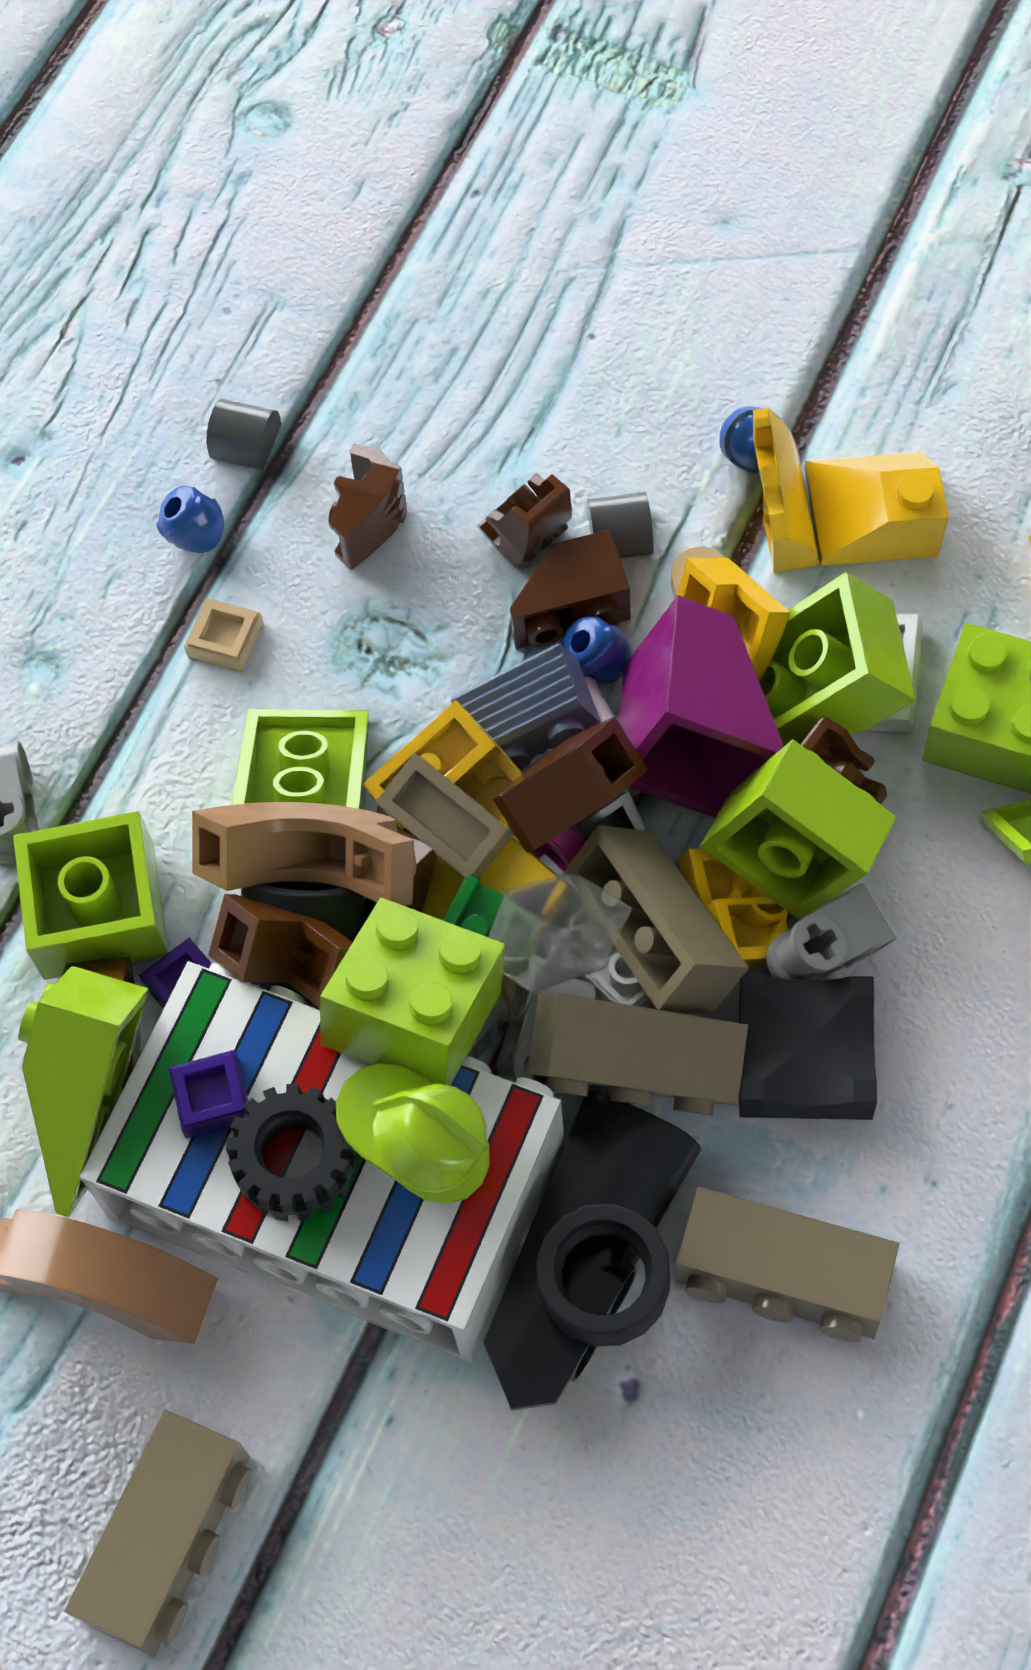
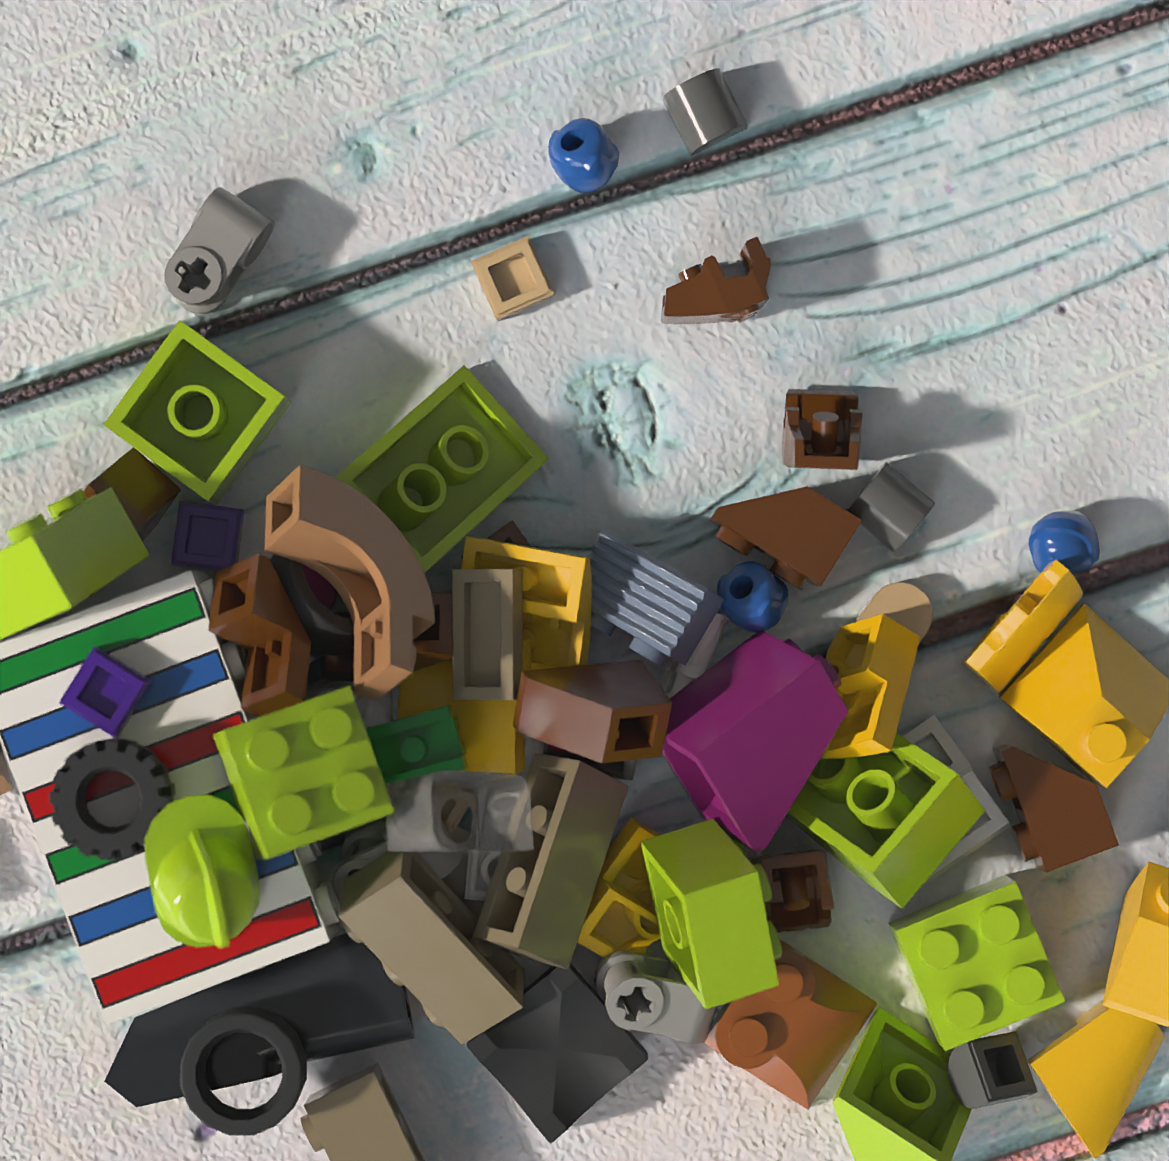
camera: 40 degrees right, 25 degrees up
(934, 575) = (1057, 810): none -> reddish brown slope
(939, 881) = (793, 1030): none -> dark orange slope

